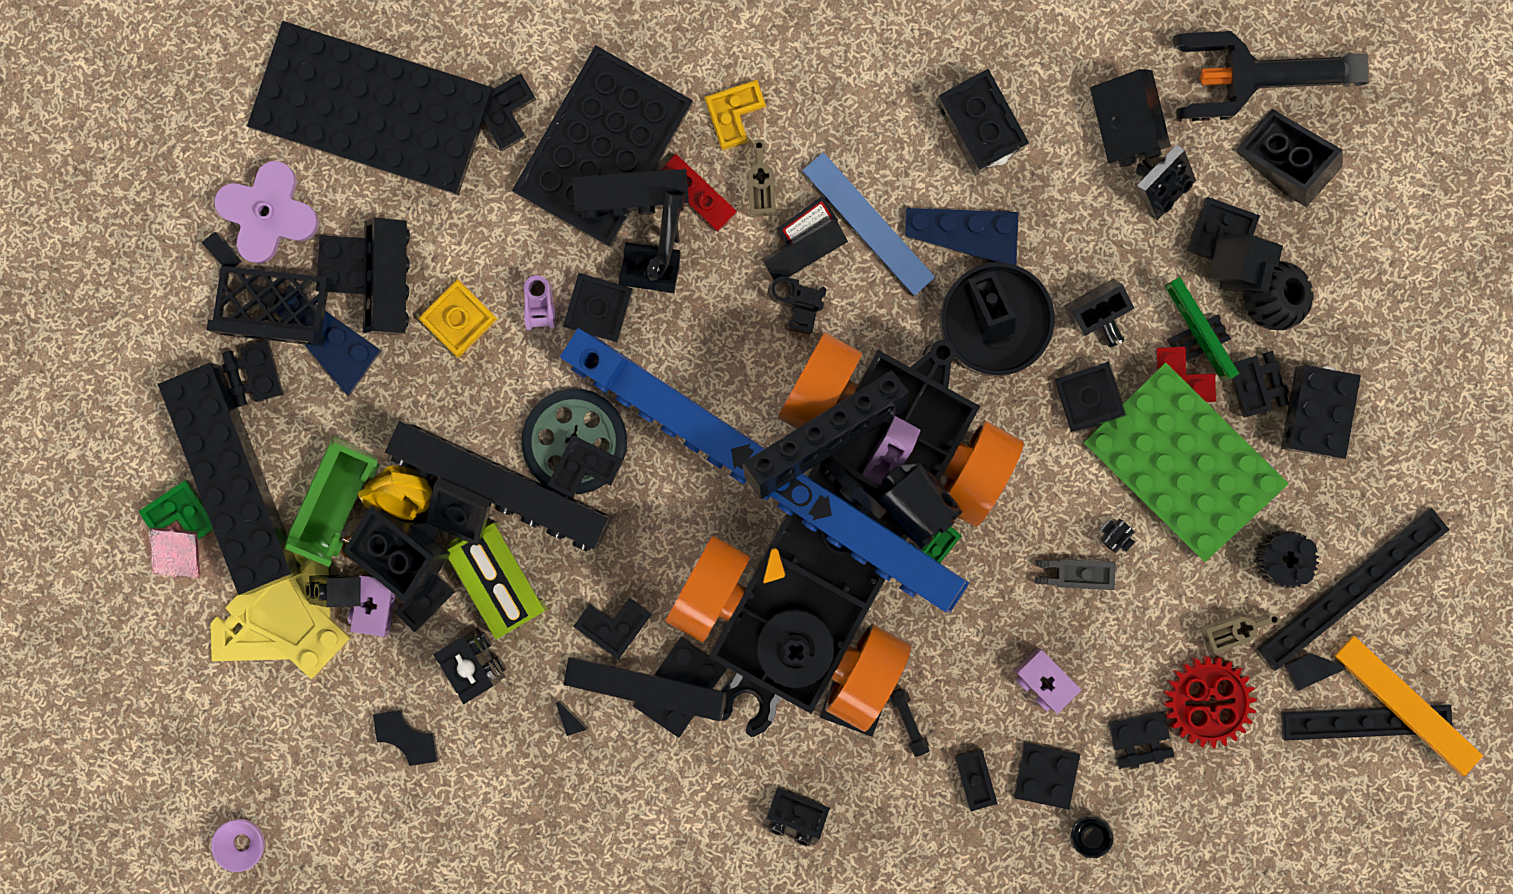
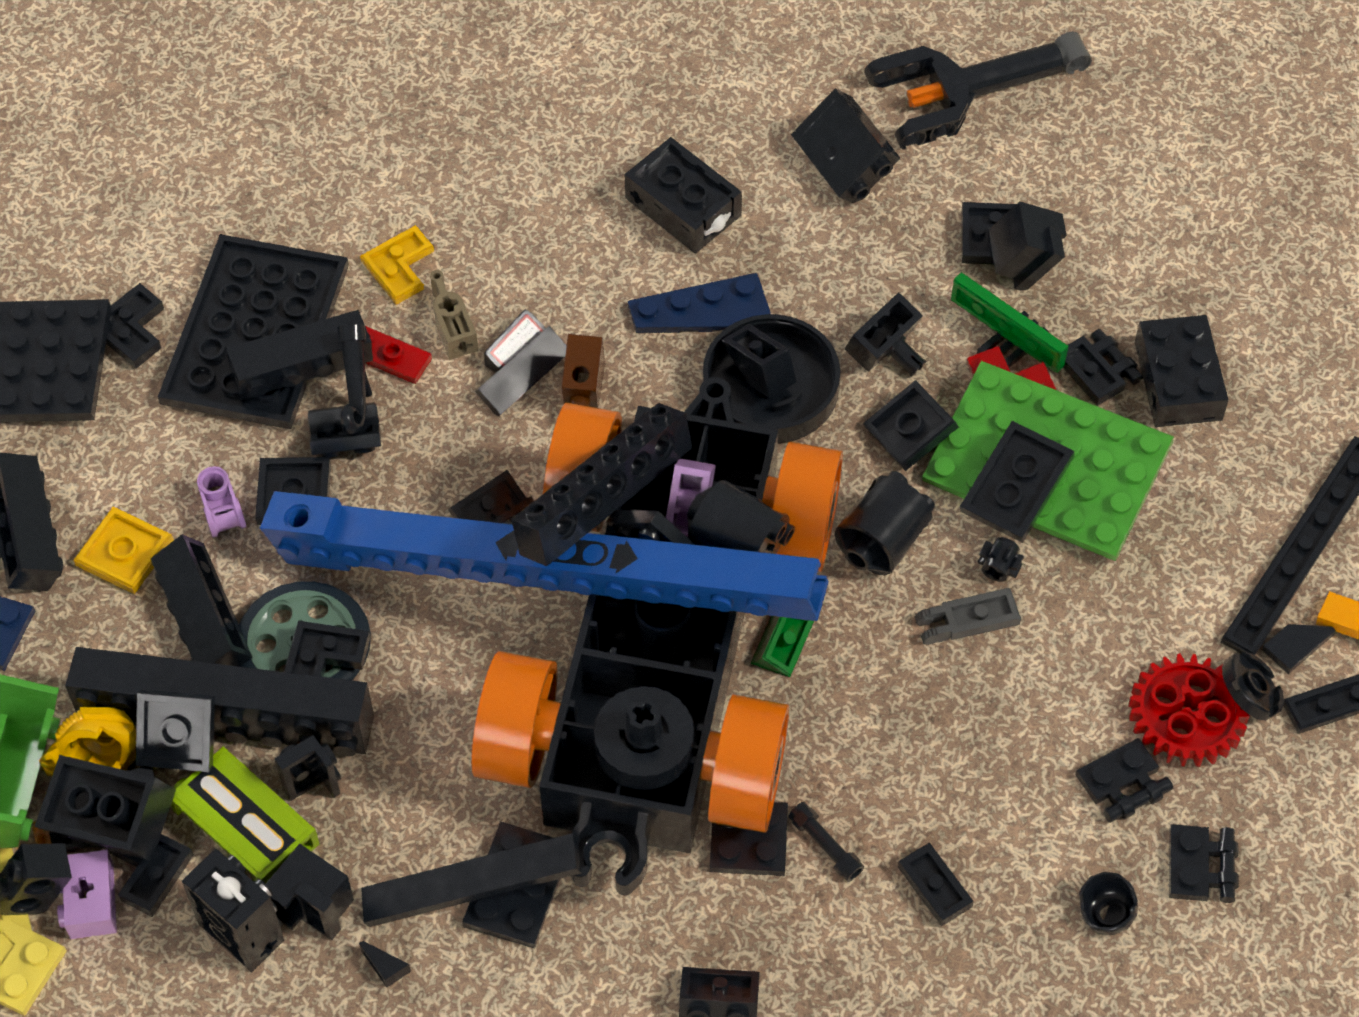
camera: 15 degrees left, 30 degrees down
(503, 395) = (199, 603): none -> black brick
(529, 658) = (310, 891): none -> black plate
(546, 557) = (306, 766): none -> black bracket
(616, 633) = (414, 842): black plate -> none
(745, 372) = (493, 502): none -> black bracket
(774, 567) = (590, 654): light orange slope -> none
(803, 304) = (538, 417): black piece -> none
(854, 266) = (587, 356): none -> reddish brown torso
(868, 224) = (570, 318): medium blue tile -> none
(1039, 485) = (884, 524): none -> black cylinder
(1046, 775) = (1024, 856): black plate -> none
(1058, 693) = (969, 725): lavender brick -> none
(1153, 482) = (1017, 481): none -> black plate
(1162, 818) = (1190, 863): none -> black plate
(1165, 181) = (904, 196): black plate -> none
(1224, 634) = (1184, 621): dark tan piece -> none
(1263, 701) = (1251, 685): none -> black tile
(1285, 303) = (1086, 276): black wheel -> none
(1291, 157) = (1041, 145): black slope -> none
(1301, 562) = (1210, 527): black brick -> none

